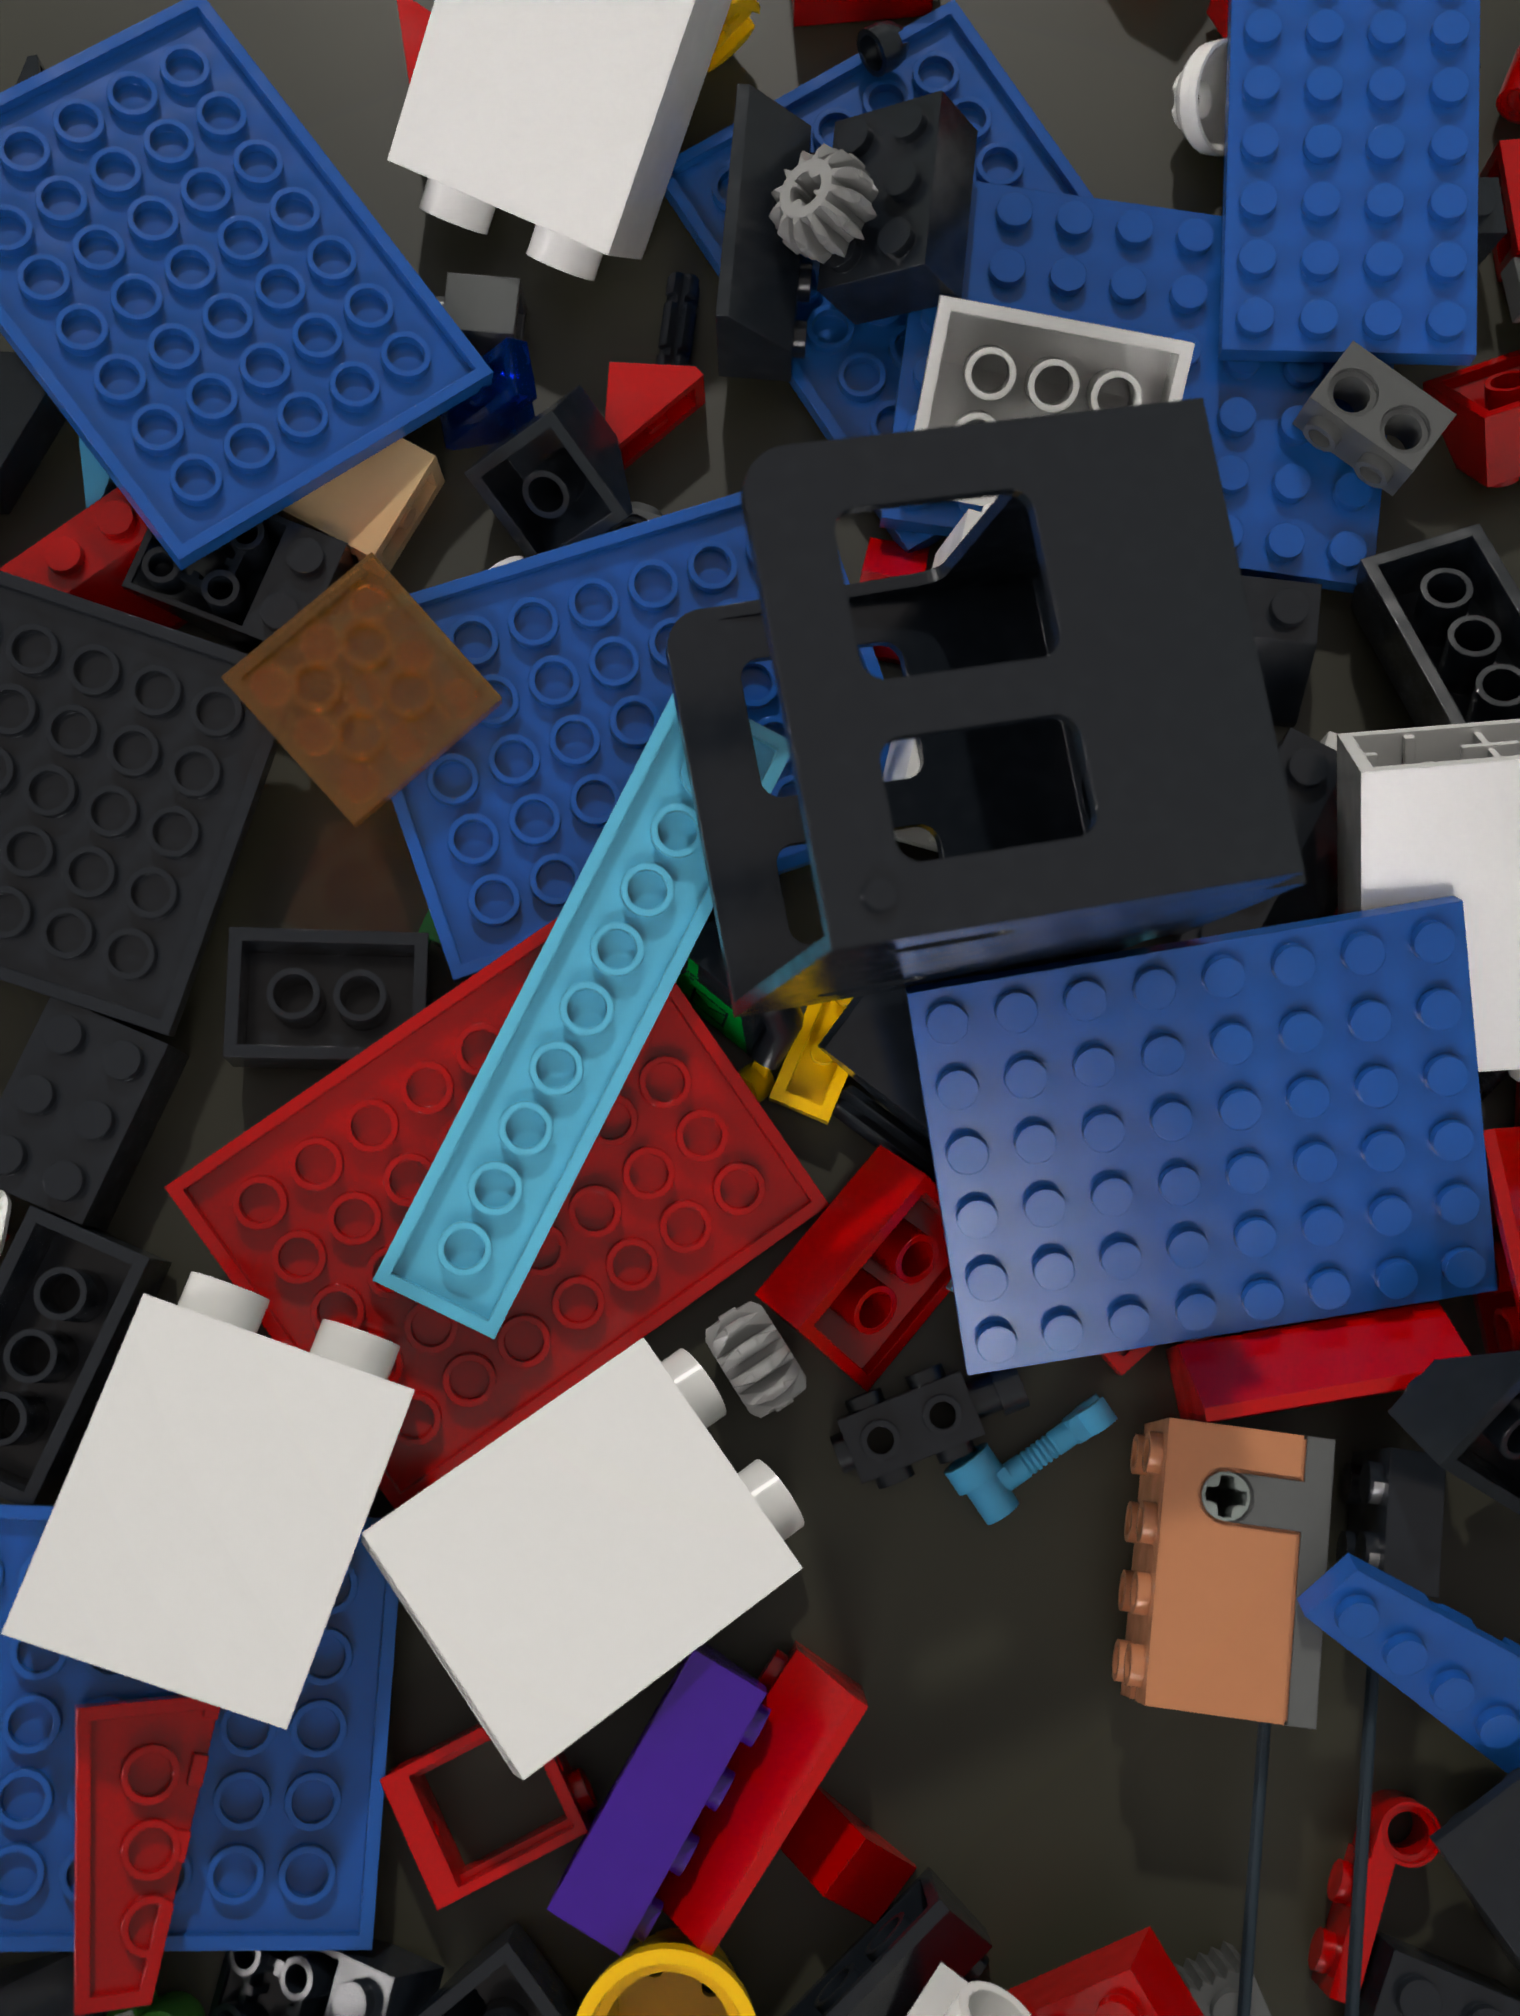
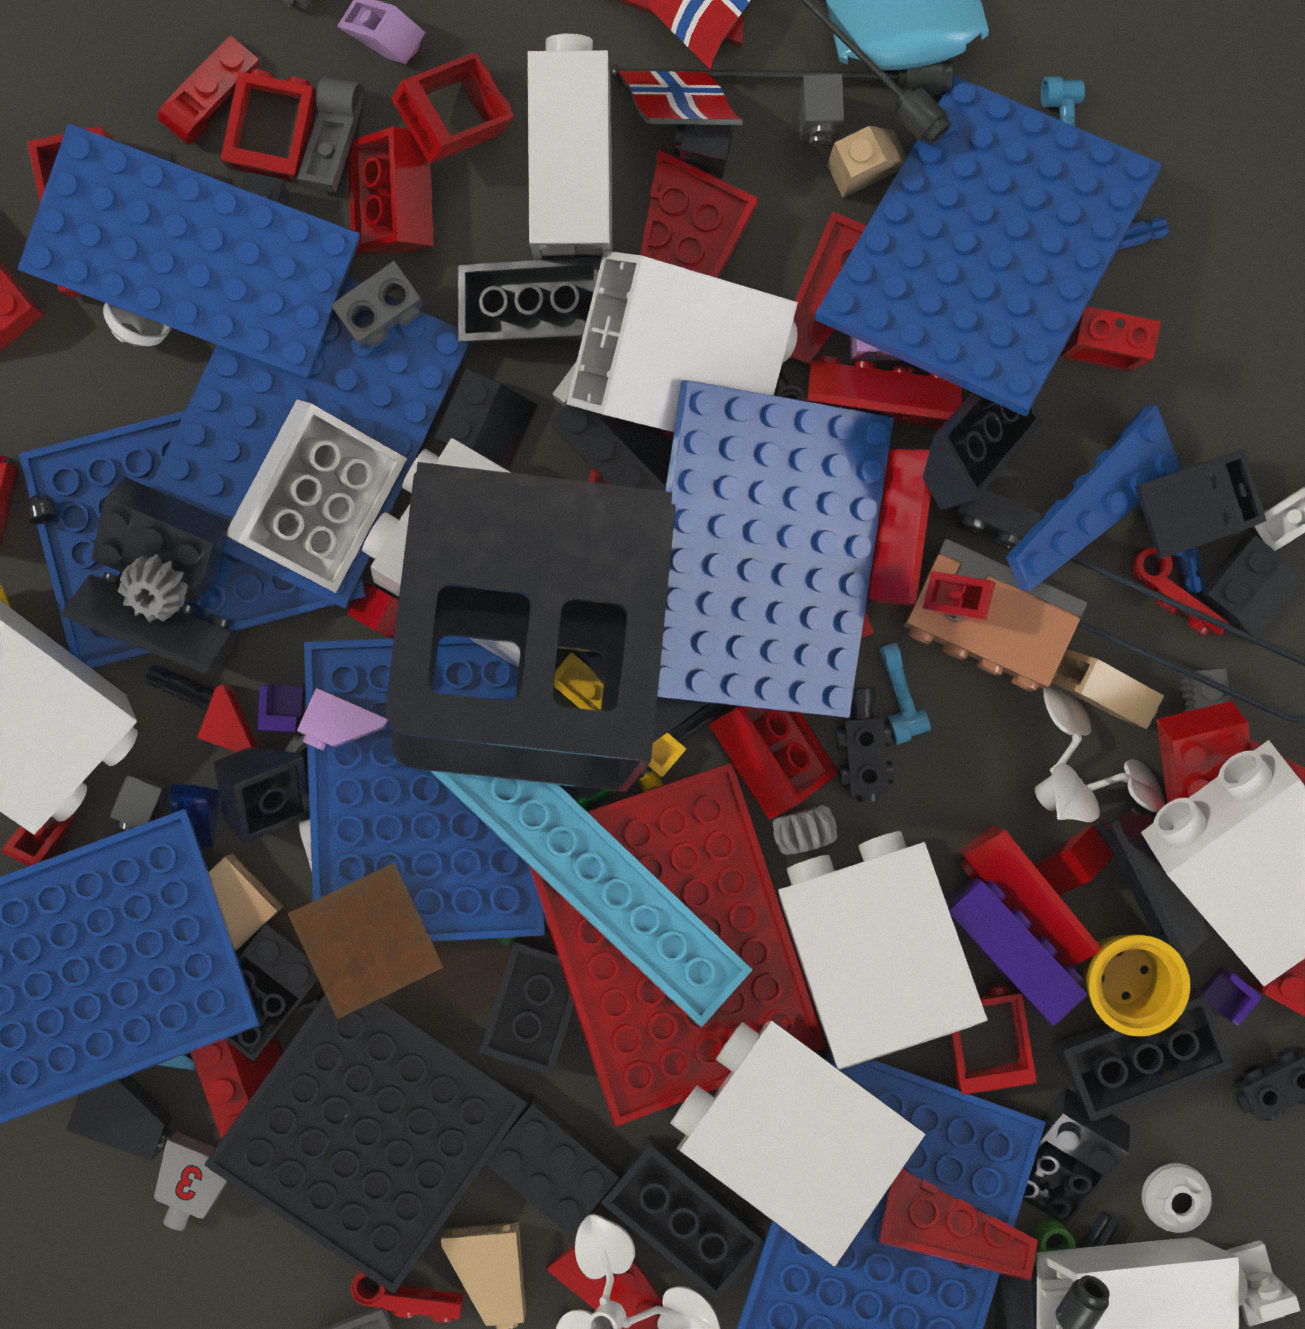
camera: 75 degrees left, 10 degrees up
(387, 188) = (39, 847): none -> red slope
(690, 471) = (280, 707): none -> dark purple panel
(699, 541) = (336, 721): none -> lavender slope
(968, 1800) = (1064, 787): none -> white plant
(1163, 1813) = (1107, 688): none -> tan slope
(1251, 1493) = (959, 596): none -> red slope
(1421, 1900) = (1189, 566): none -> blue axle

